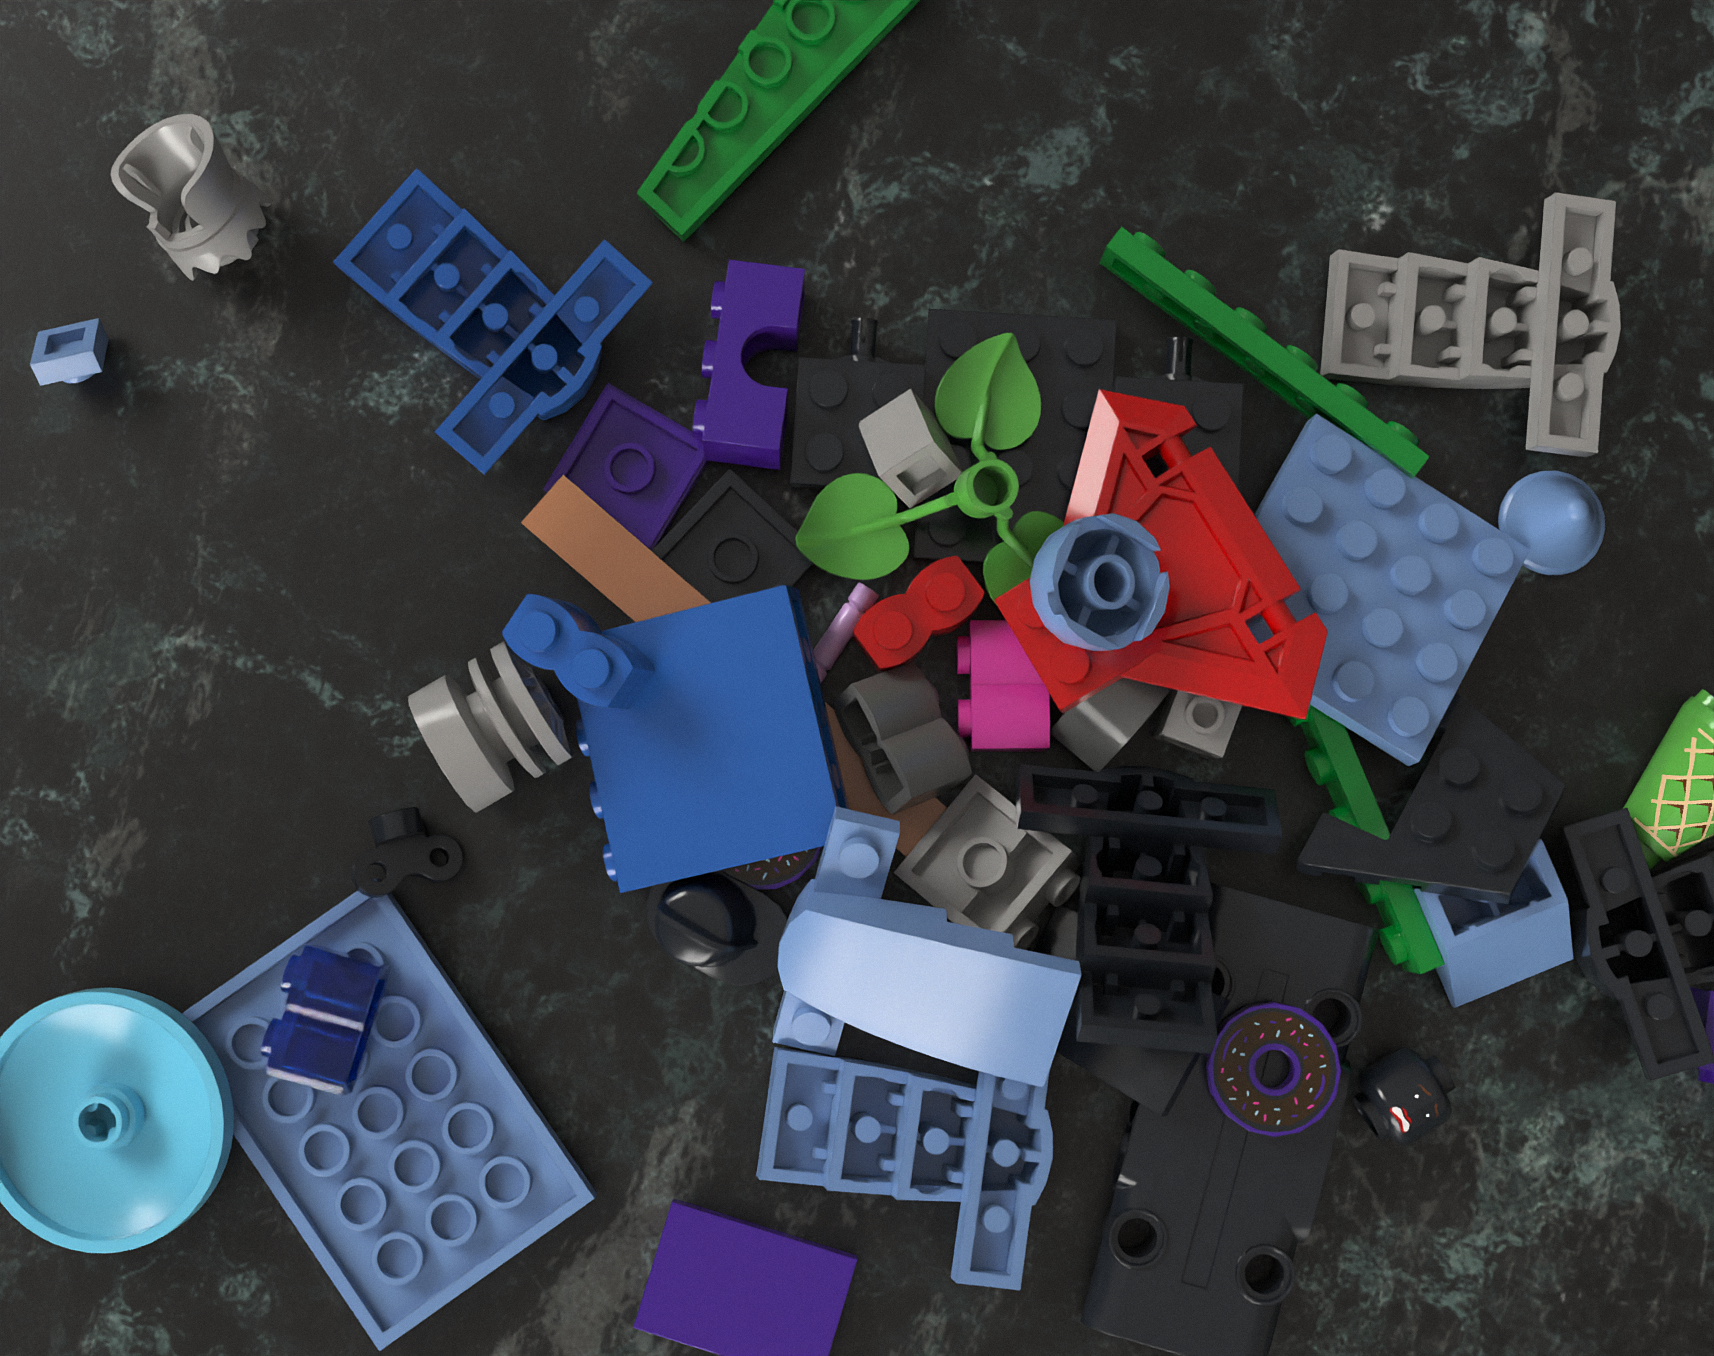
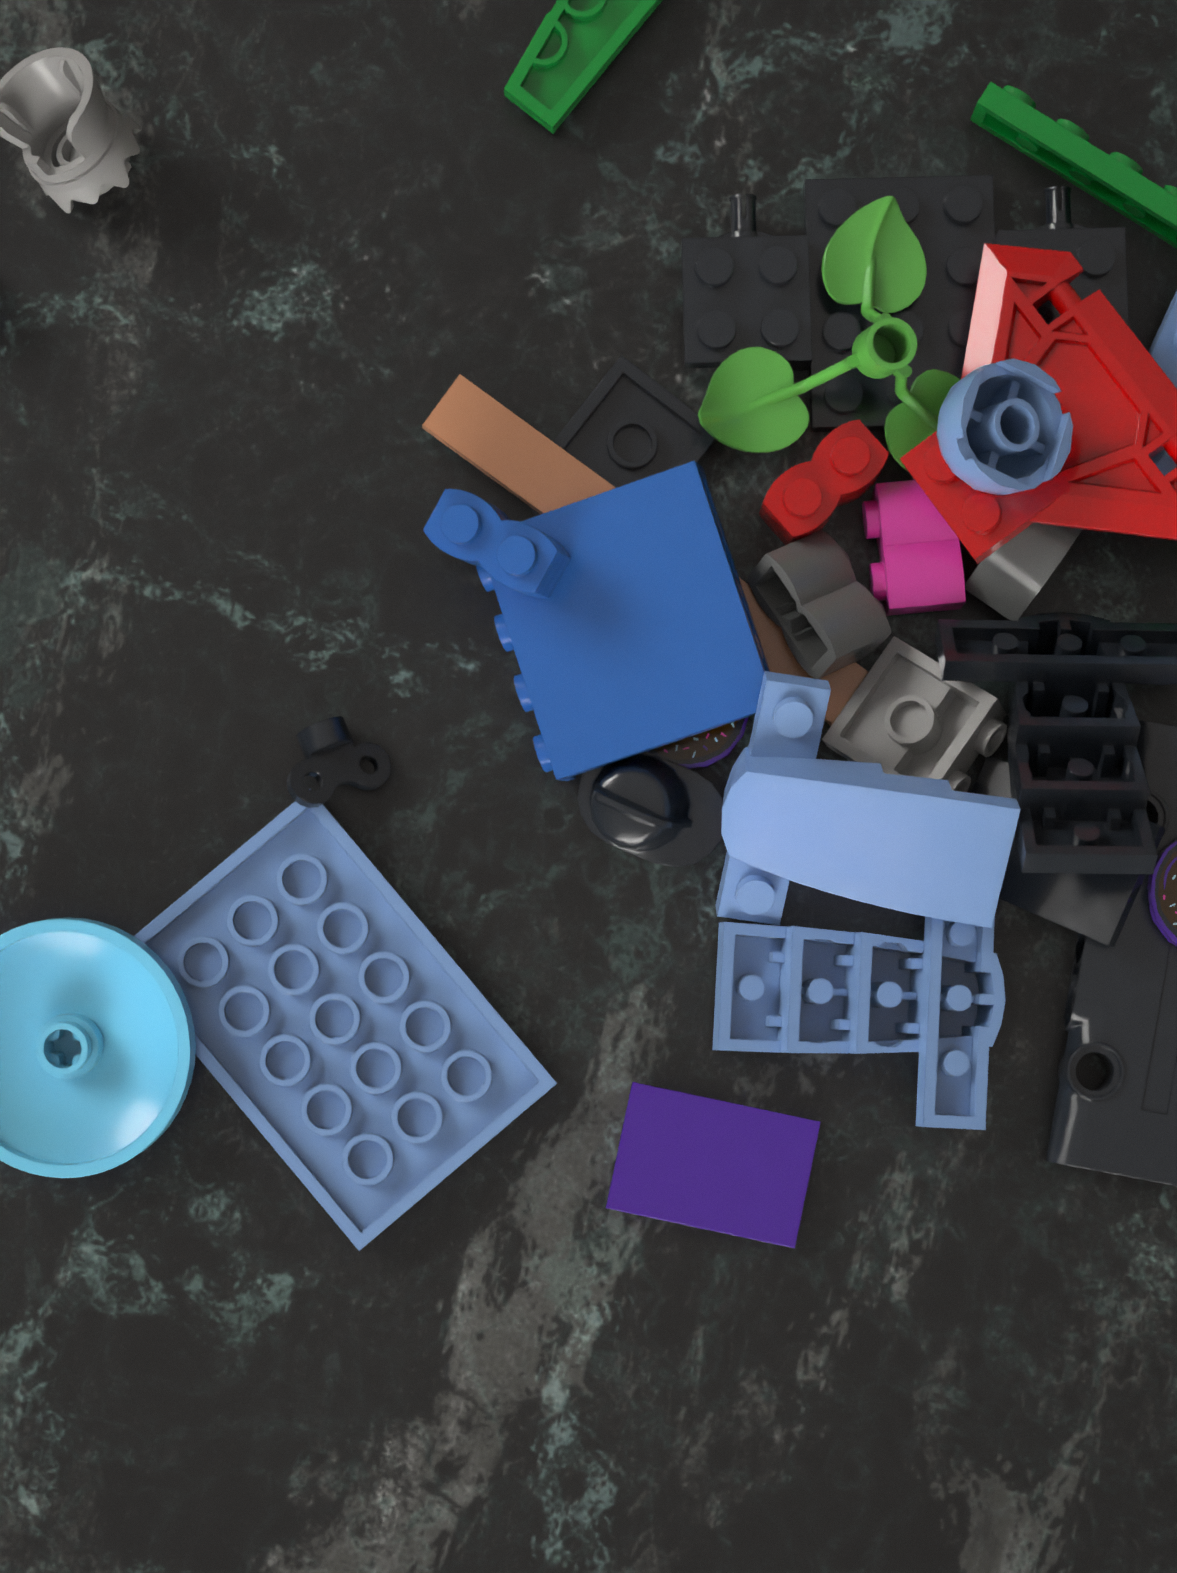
camera: 10 degrees left, 0 degrees up
(325, 1019) = (278, 927): clear blue brick -> none
(485, 730) = (415, 626): light grey wheel -> none
(490, 313) = (369, 220): blue slope -> none
(633, 464) = (525, 357): dark purple tile -> none
(757, 312) = (637, 199): dark purple arch -> none
(842, 628) = (749, 502): lavender wheel -> none
(909, 449) = (802, 318): light grey panel -> none
(1196, 723) = (1108, 564): light grey brick -> none

